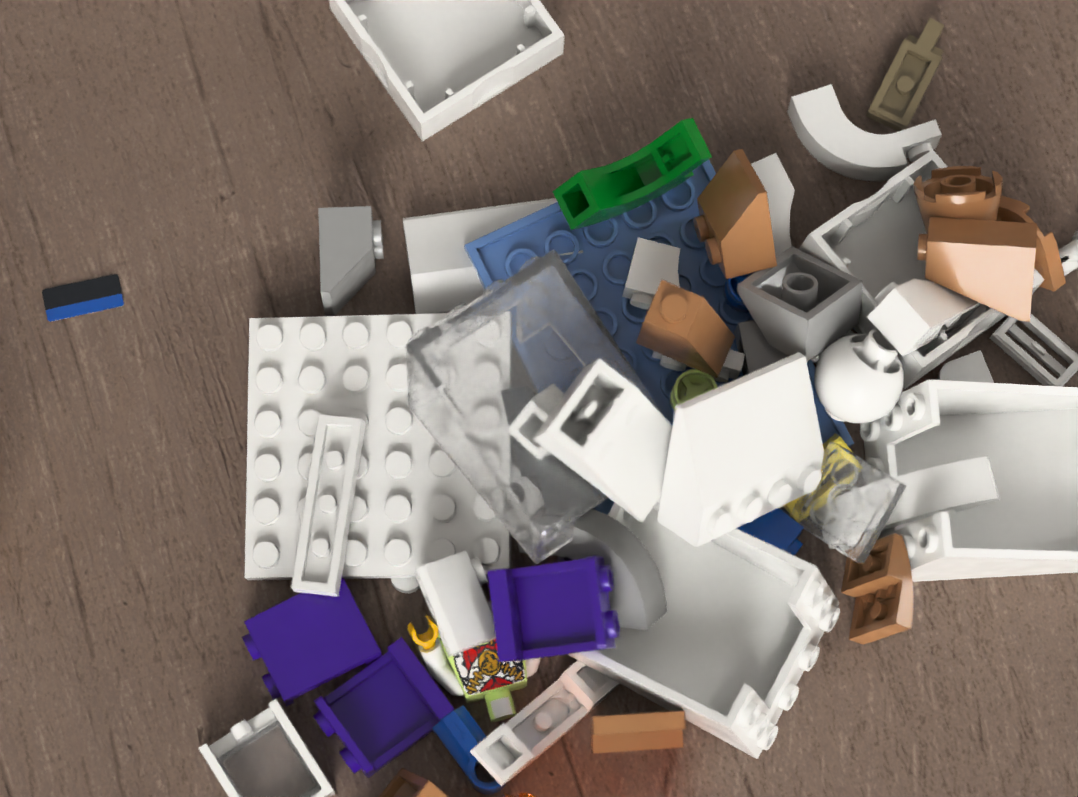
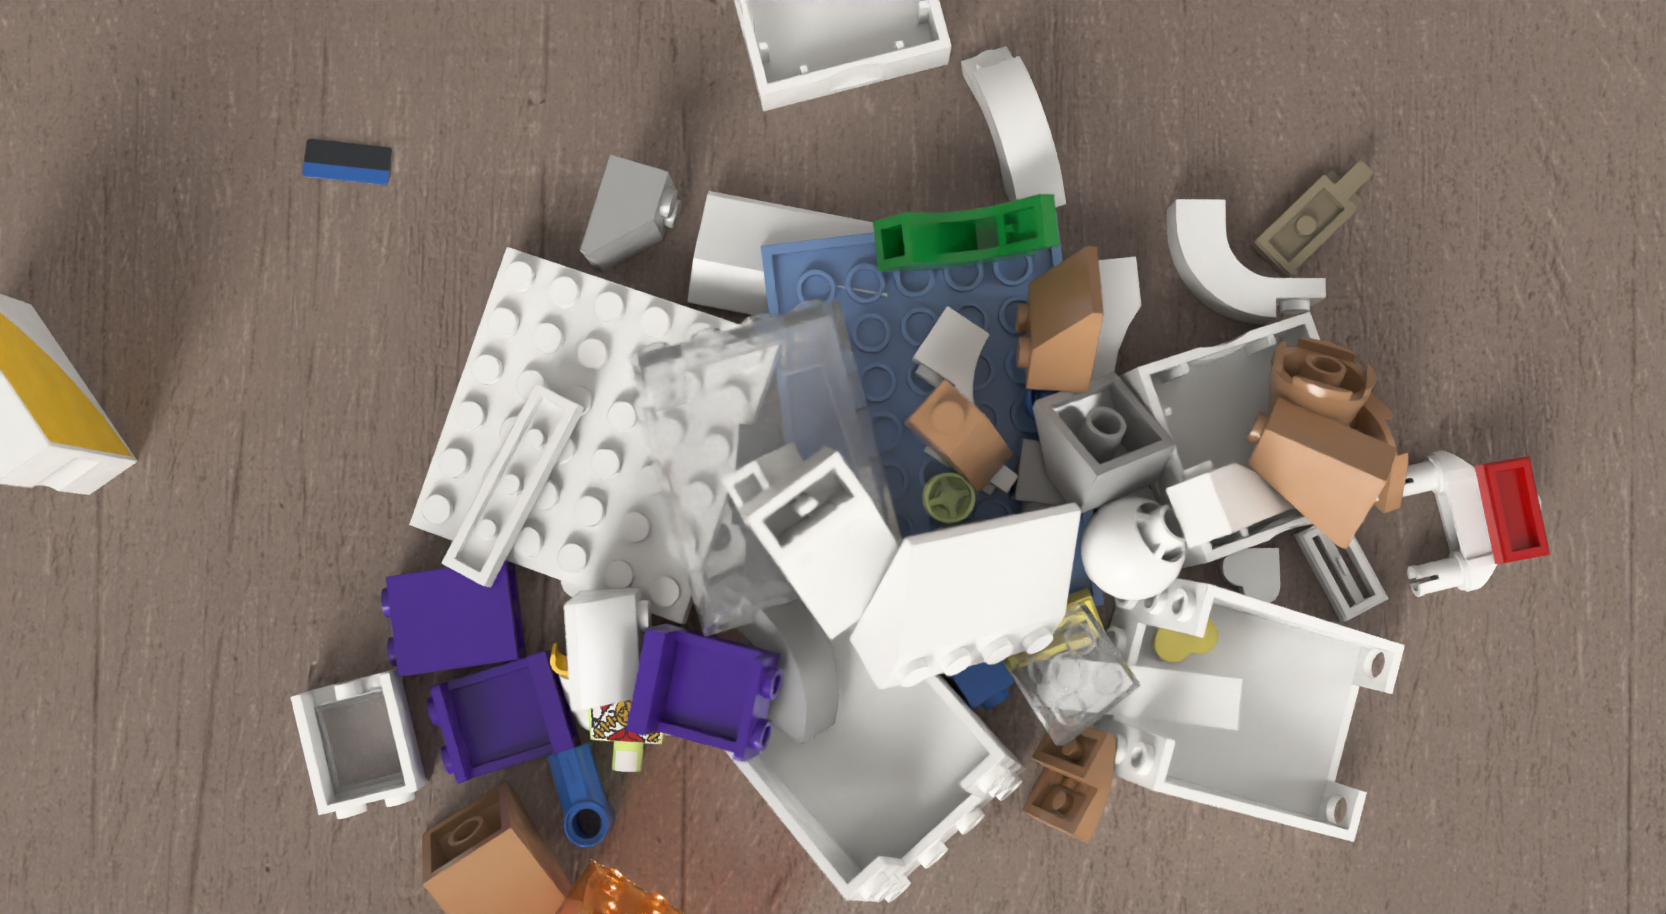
camera: 25 degrees right, 10 degrees up
(542, 721) = (653, 796): white slope -> none
(637, 732) = (754, 844): medium nougat slope -> none
(638, 78) = (1016, 124): none -> white arch
(930, 447) = (1176, 646): none -> light yellow tile

